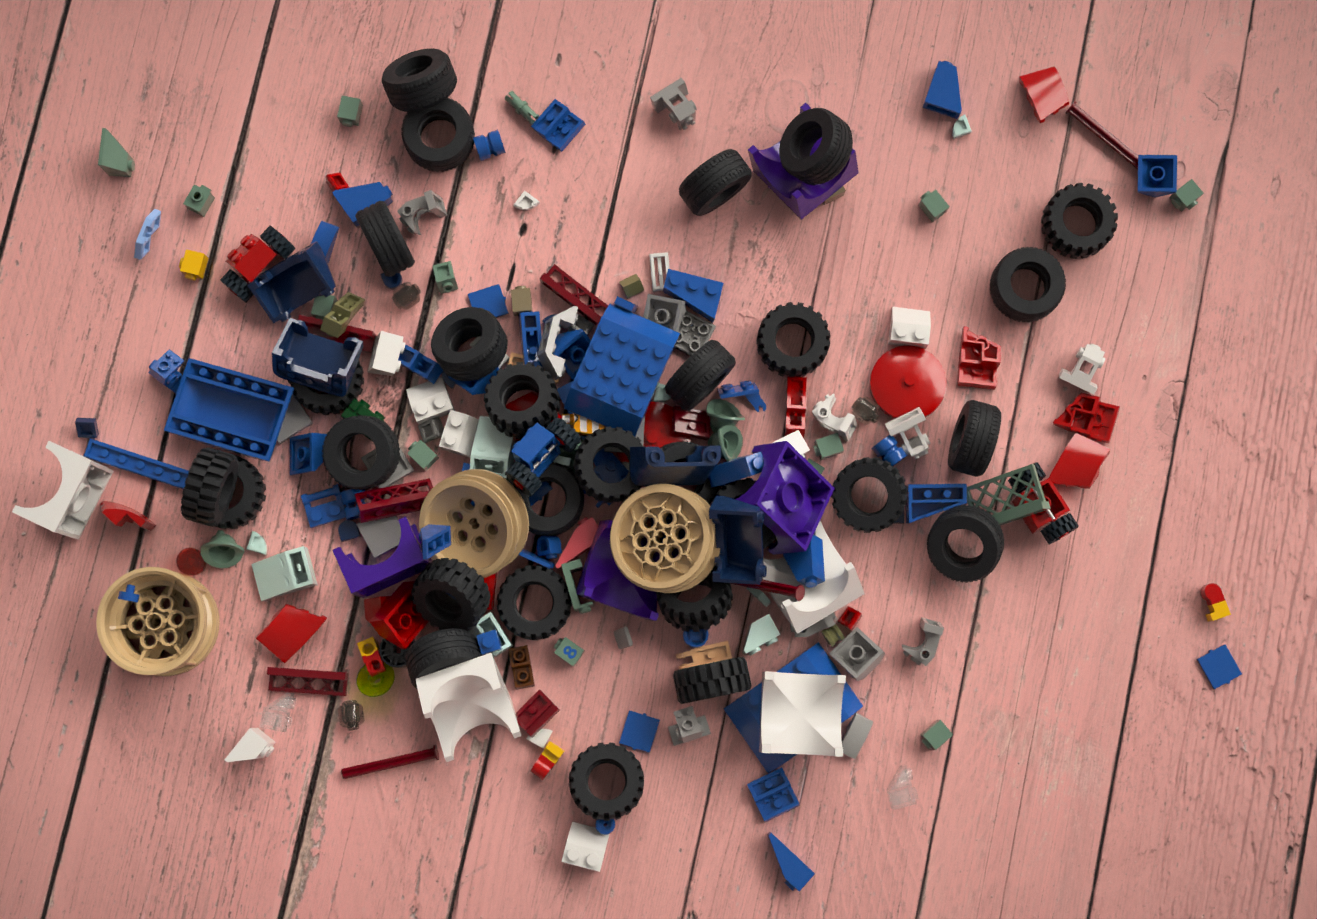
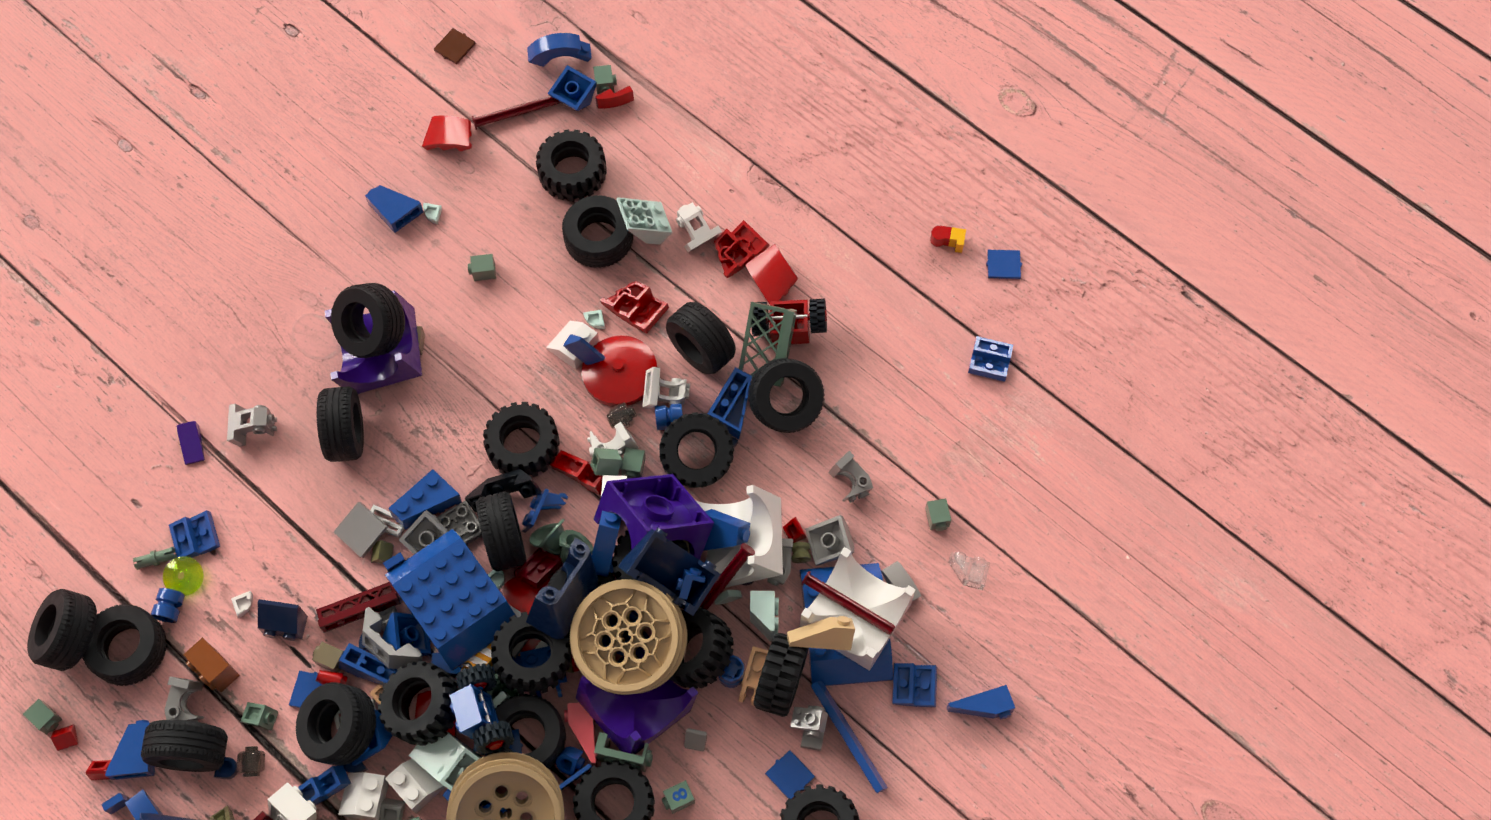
camera: 60 degrees left, 15 degrees down
(317, 213) = (115, 803): none -> blue tile
(345, 138) = (64, 737): none -> red slope
(460, 213) = (210, 666): none -> dark orange brick
(505, 315) = (328, 676): none -> red cone
(526, 146) = (192, 575): none -> clear neon green dish
(528, 243) = (281, 620): none -> dark blue slope
(633, 68) = (190, 442): none -> dark purple slope
(639, 256) = (360, 529): none -> light grey tile
(696, 763) = (849, 736): none -> blue tile
(734, 559) = (684, 584): none -> blue bracket
(744, 348) = (507, 482): none -> black slope
(761, 699) = (828, 633): none -> tan slope
(802, 704) = (848, 603): none -> dark red axle
(813, 424) = (606, 462): none -> sand green brick
(902, 342) = (583, 350): none -> blue slope
(944, 332) = (595, 319): none -> light aqua tile
(1062, 320) = (645, 219): none -> light aqua slope
(1115, 703) = (990, 358): none -> blue slope
(1139, 38) = (454, 46): none -> reddish brown piece
(1168, 213) = (610, 100): none -> red slope
(1193, 134) = (558, 45): none -> blue arch

